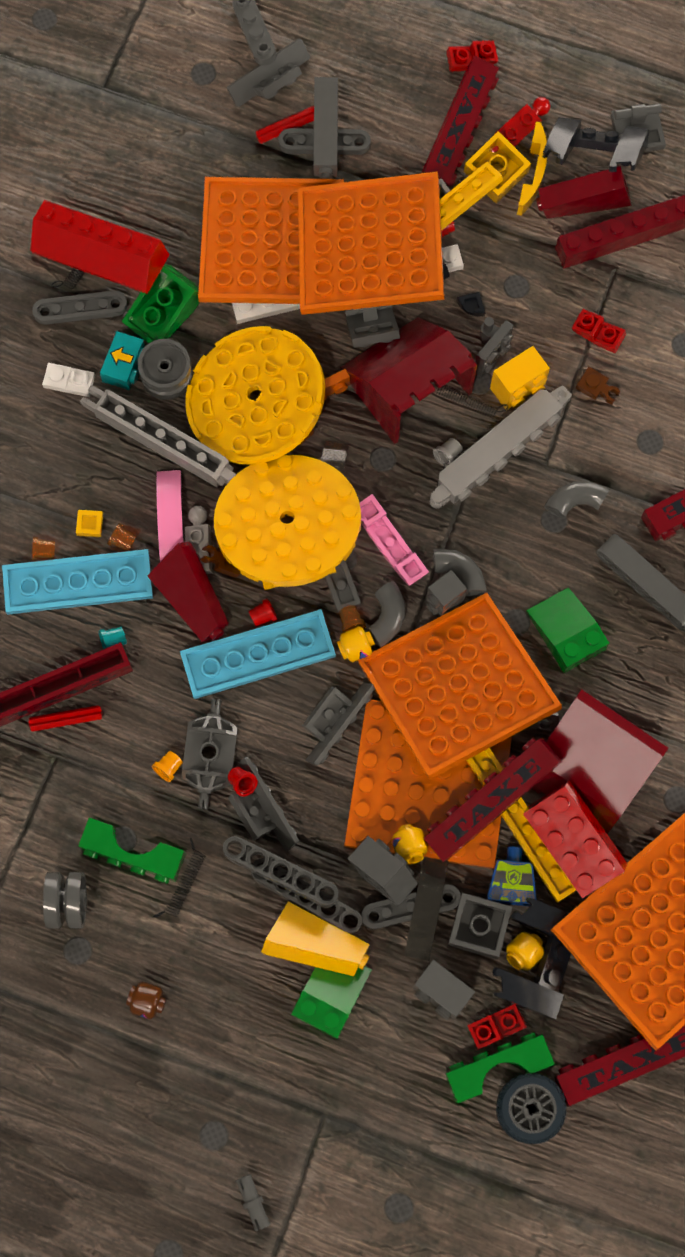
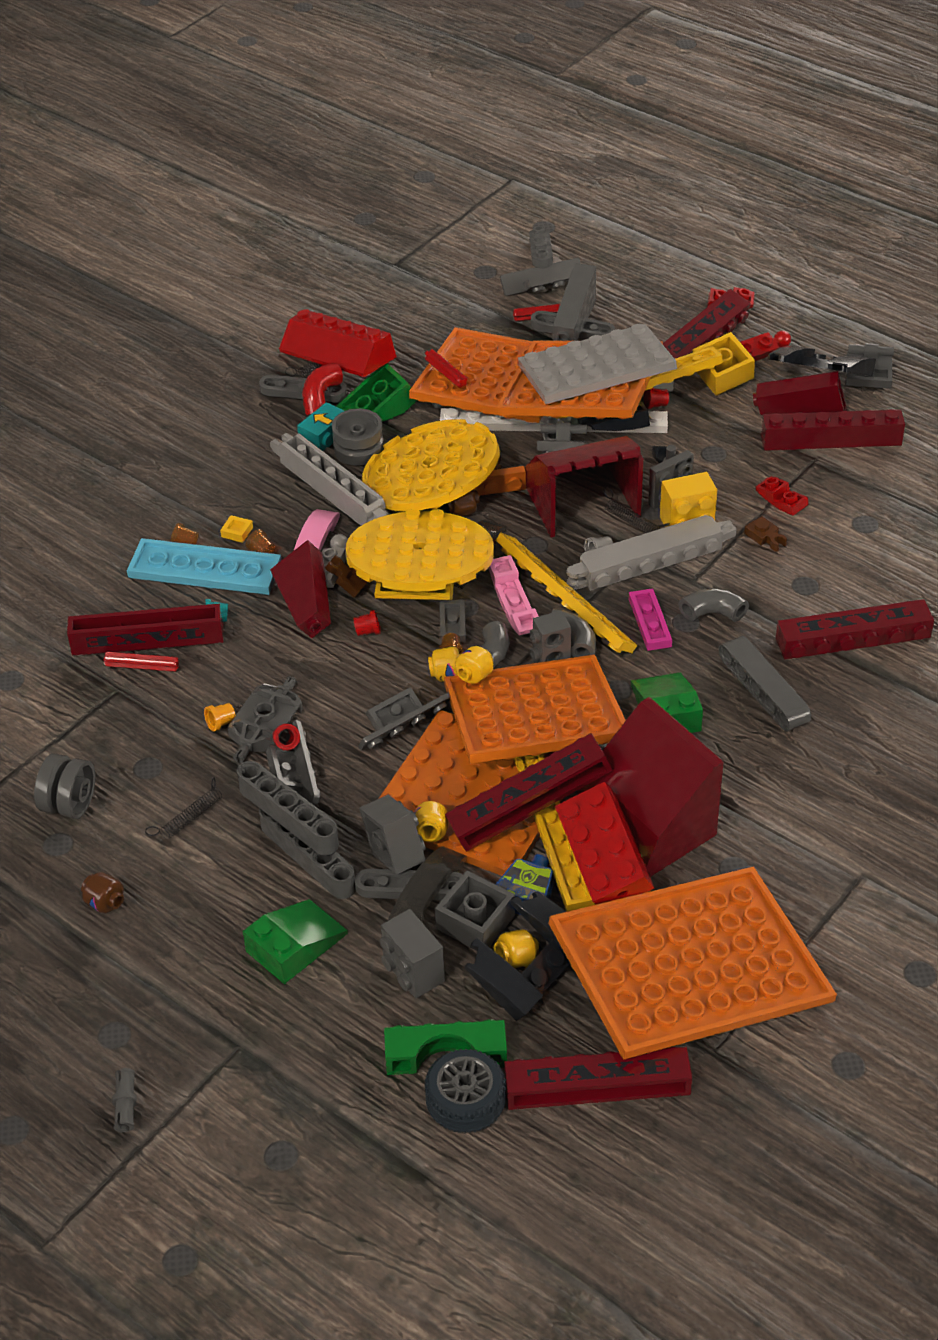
camera: 20 degrees right, 30 degrees down
(68, 379) = (265, 432): white plate -> none
(99, 311) = (316, 385): none -> red cylinder
(162, 861) = (174, 786): green arch -> none
(224, 255) = (446, 368): none -> red axle
(257, 654) = (348, 653): medium azure plate -> none
(314, 942) = (295, 882): yellow slope -> none
(382, 224) = (596, 363): none -> light grey plate
(387, 650) = (474, 664): none -> yellow head
(433, 519) = (570, 598): none -> yellow plate
(497, 1026) = (451, 1010): red slope -> none
(523, 531) = (650, 619): none -> dark pink plate
(530, 192) = (744, 391): yellow slope -> none

